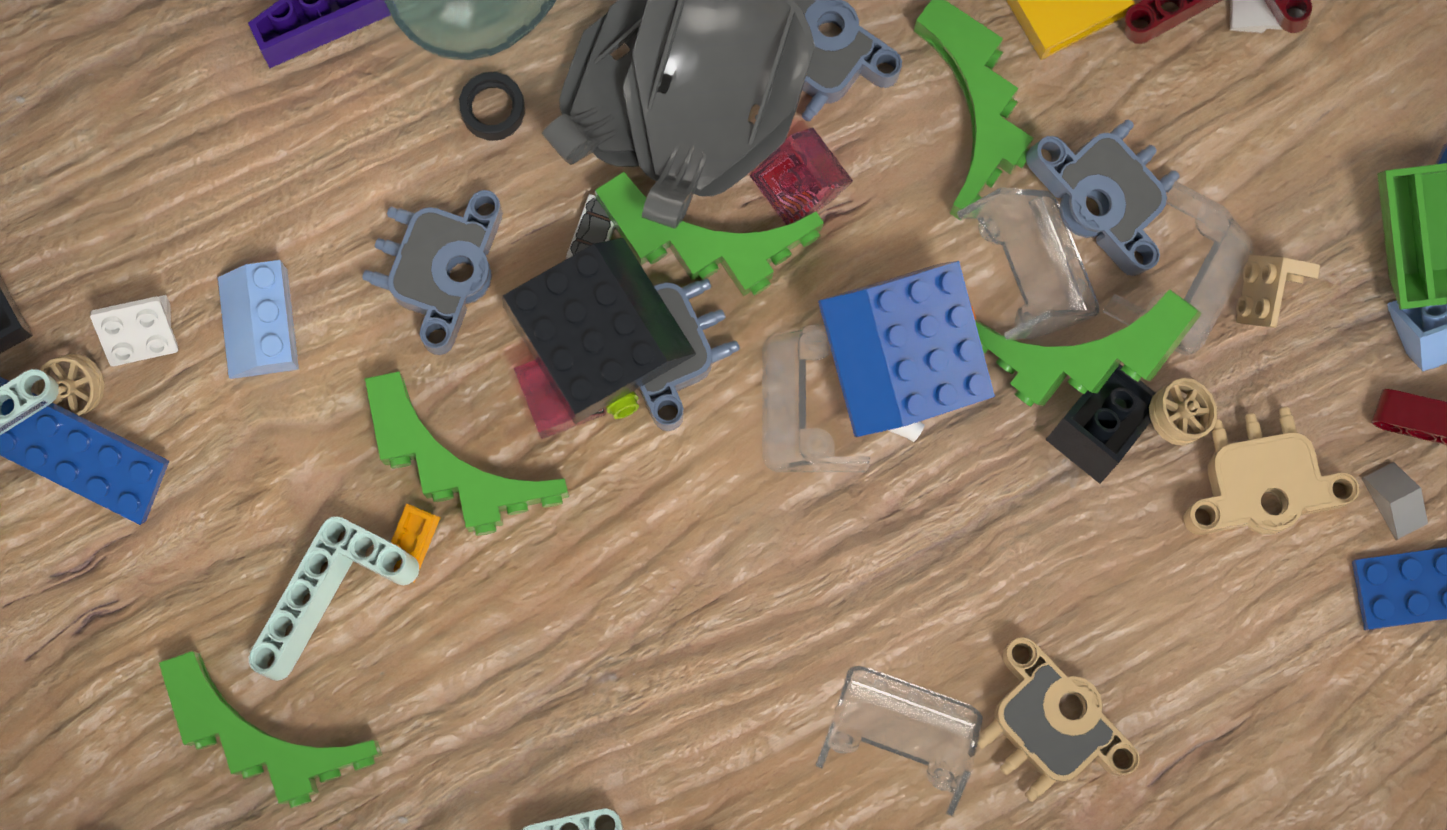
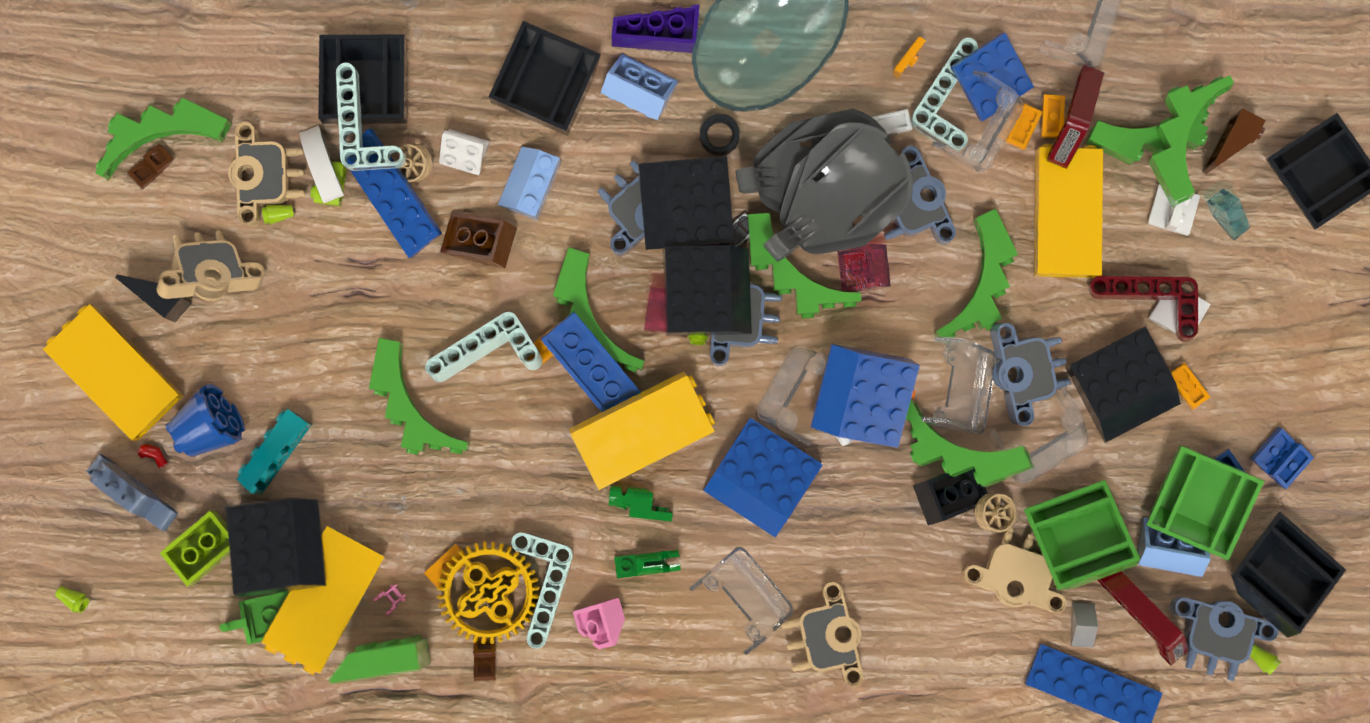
camera: 30 degrees right, 5 degrees up
(197, 162) = (545, 78): none -> black slope
(228, 441) = (478, 239): none -> reddish brown slope
(339, 102) = (639, 87): none -> light blue slope
(497, 220) = (686, 202): none -> black slope
(507, 533) = (589, 363): none -> blue plate
(617, 578) = (642, 429): none -> yellow brick
(673, 686) = (639, 502): none -> green plate
(732, 768) = (646, 564): none -> green plate
(829, 549) = (763, 477): none -> blue slope
(1253, 135) = (1124, 384): none -> black slope
(1264, 287) = (1078, 471): tan bracket -> none
(1325, 373) = (1082, 536): none -> bright green slope
(1340, 90) = (1189, 386): none -> light orange plate

